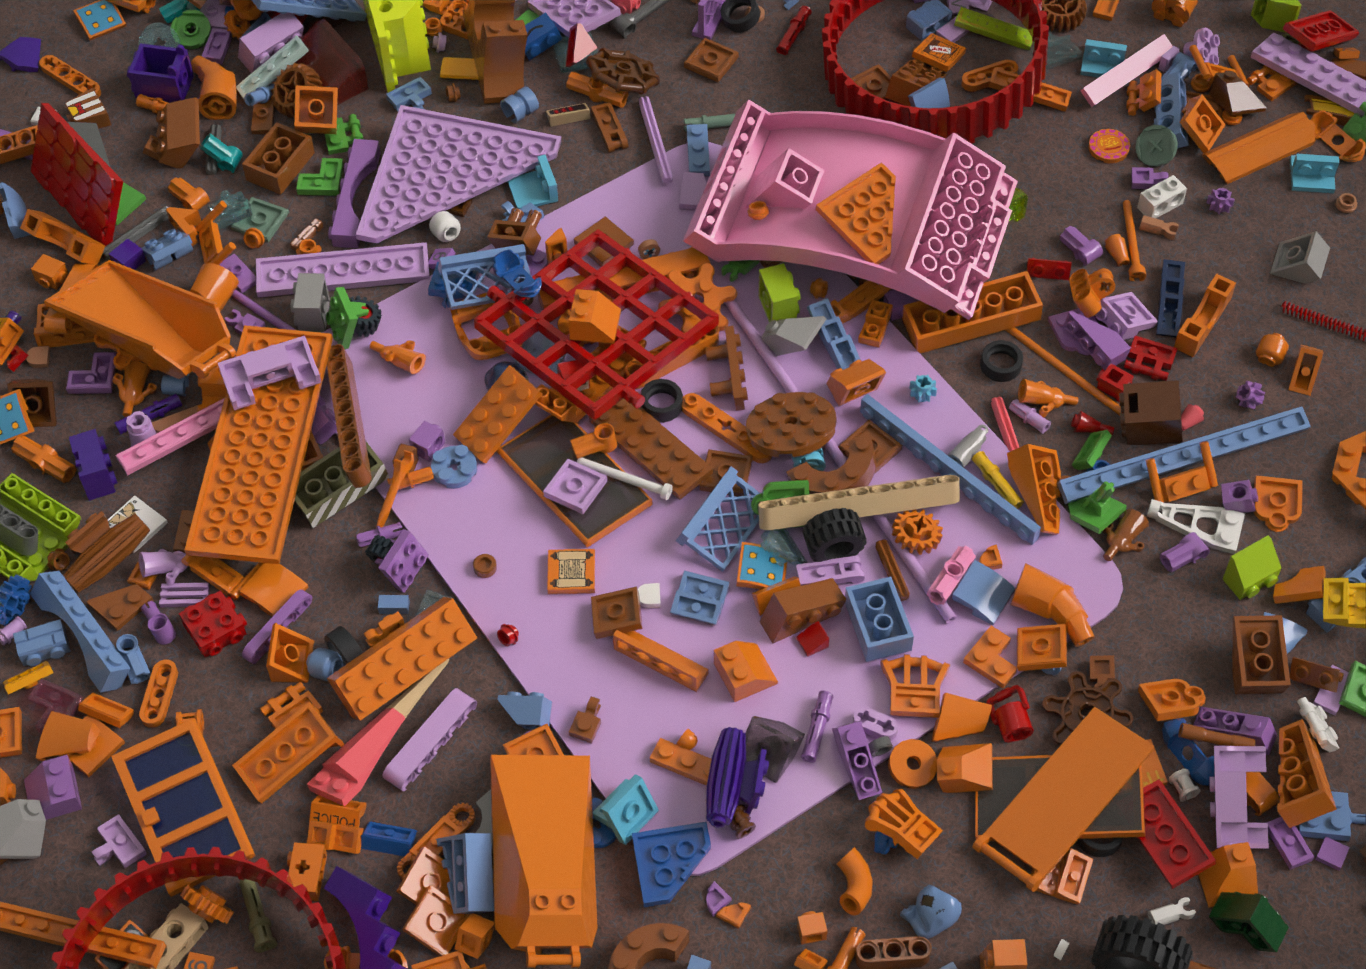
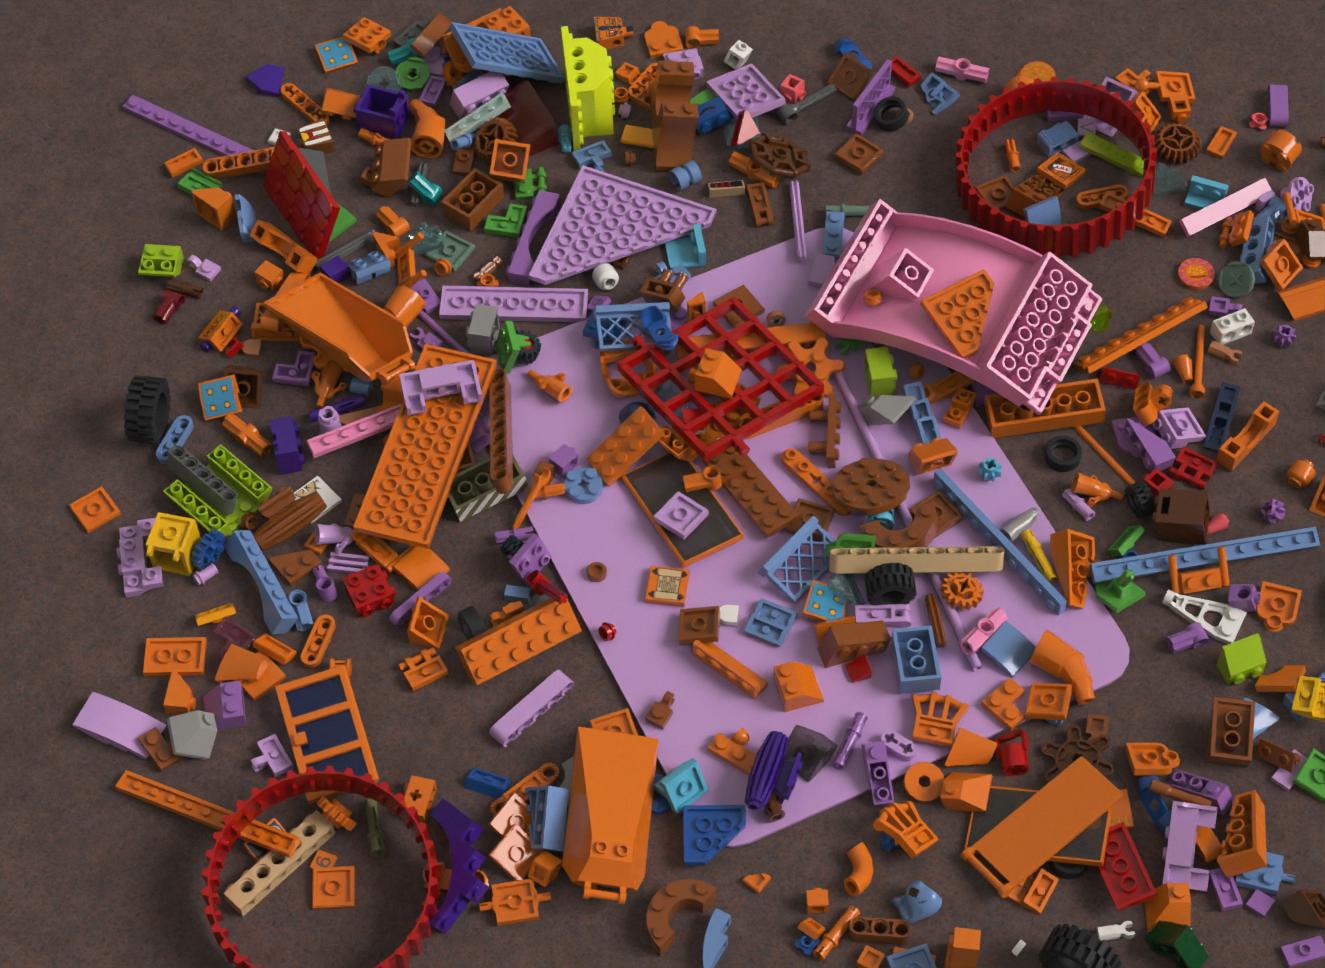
camera: 10 degrees right, 0 degrees up
(41, 643) = (229, 587): medium blue brick -> none
(110, 69) = (339, 103): none -> orange slope
(286, 752) = (414, 702): orange plate -> none
(323, 663) = (454, 634): medium blue head -> none
(329, 811) = (447, 759): orange panel -> none
(335, 836) = (445, 775): orange slope -> none
(352, 764) = (466, 719): coral plate -> none
(376, 79) = (565, 138): none -> medium azure axle
(422, 590) = (542, 586): none -> red axle
(529, 710) = (614, 695): medium blue slope -> none
(663, 386) = (766, 439): black tyre -> none
(664, 491) = (754, 528): white bar -> none
(716, 898) = (744, 867): medium lavender tile -> none
(796, 25) = (939, 130): red pin -> none
(880, 746) = (898, 764): dark grey tile -> none
(882, 42) = (1012, 155): none -> orange axle
(991, 558) = (1021, 621): orange tile -> none
(1004, 423) = (1055, 508): coral axle -> none
(1062, 219) = (1144, 332): none -> orange plate
(1084, 423) = (1127, 518): red cone -> none
(1100, 400) = (1140, 499): none -> black tyre
(1127, 530) = (1139, 616): dark orange piece -> none
(1184, 785) = (1146, 830): white bush -> none
(1318, 727) = (1269, 797): white plate -> none

